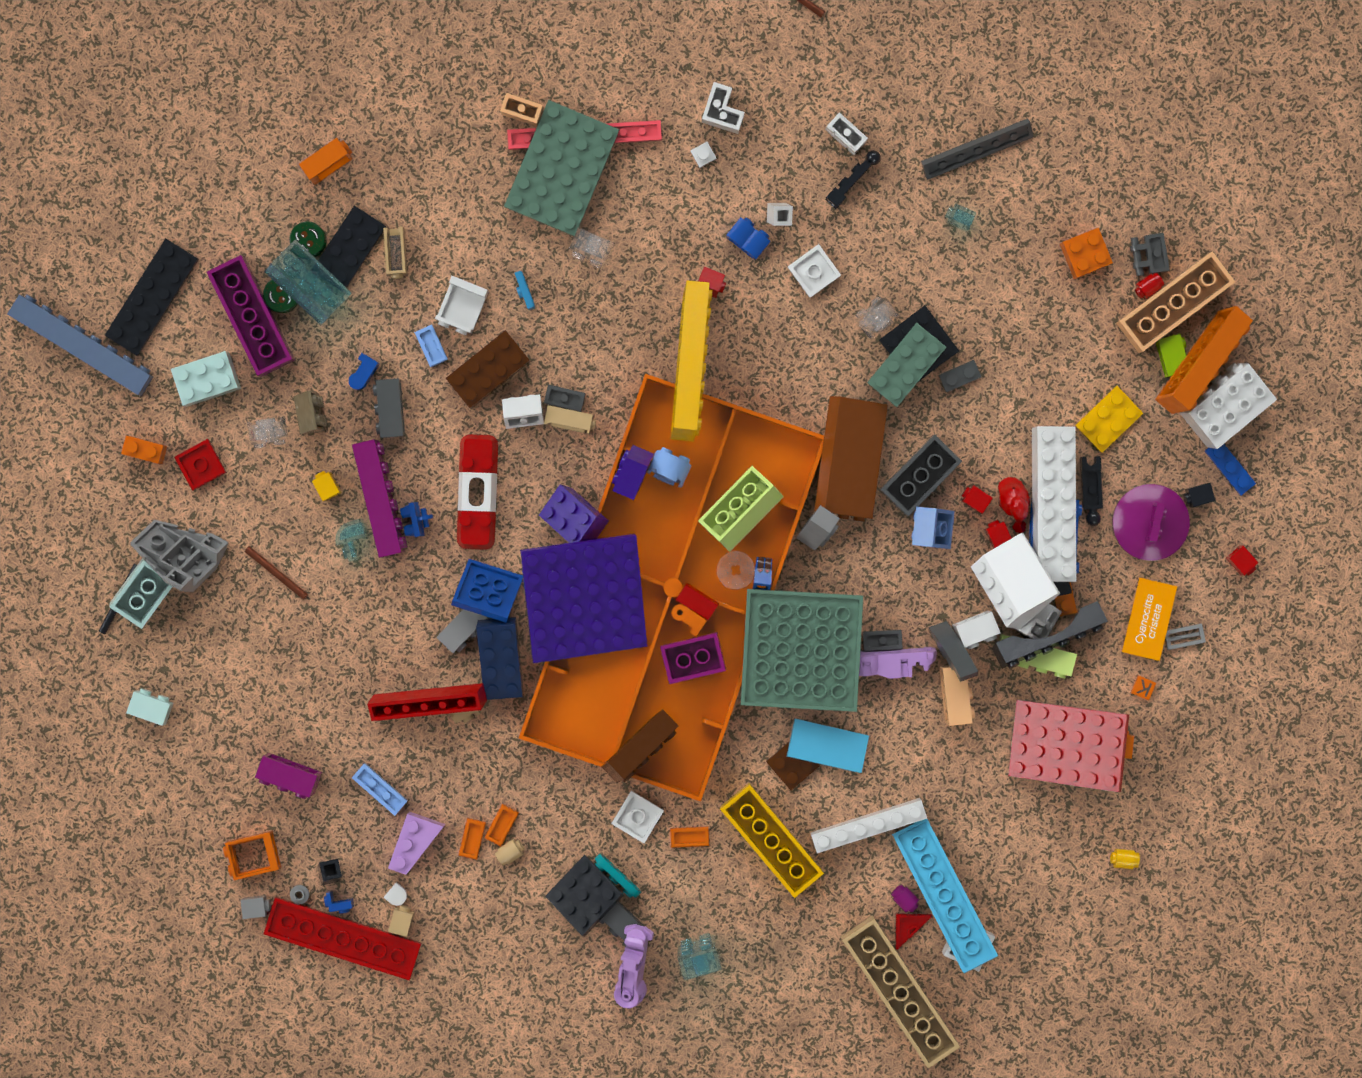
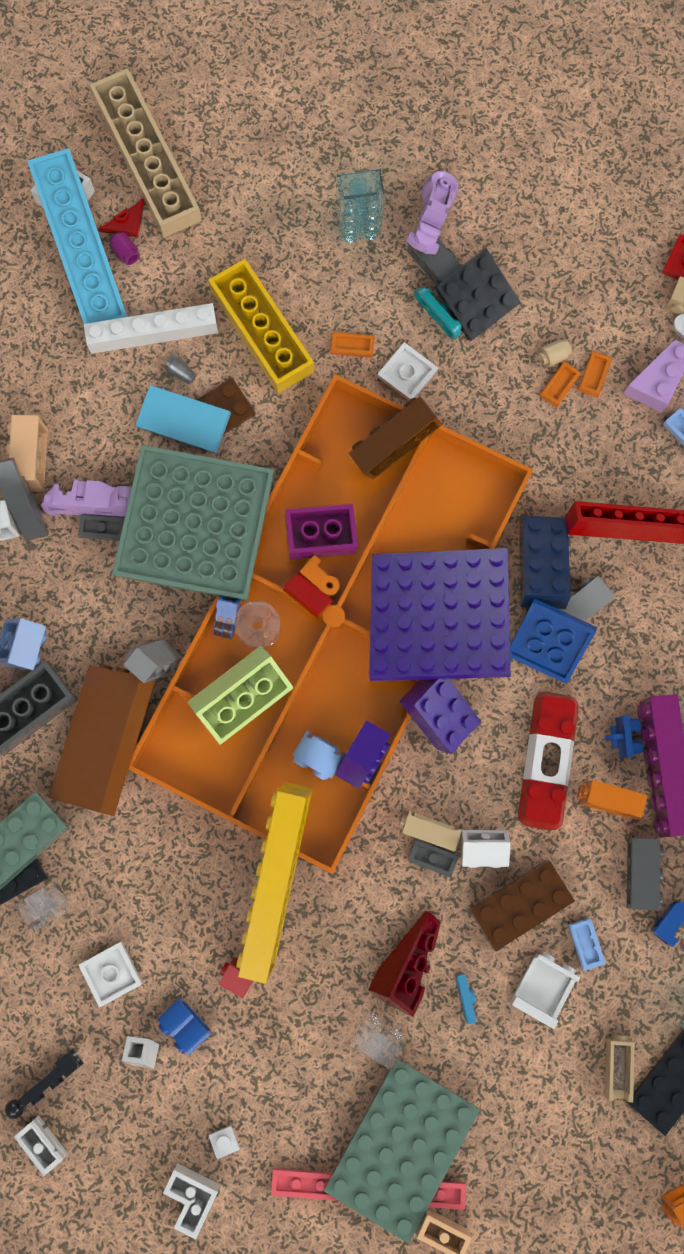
camera: 175 degrees left, 10 degrees down
(423, 464) = (612, 799): none -> orange window
(579, 302) = (401, 973): none -> dark red wedge
(838, 792) = (178, 368): none -> flat silver cone

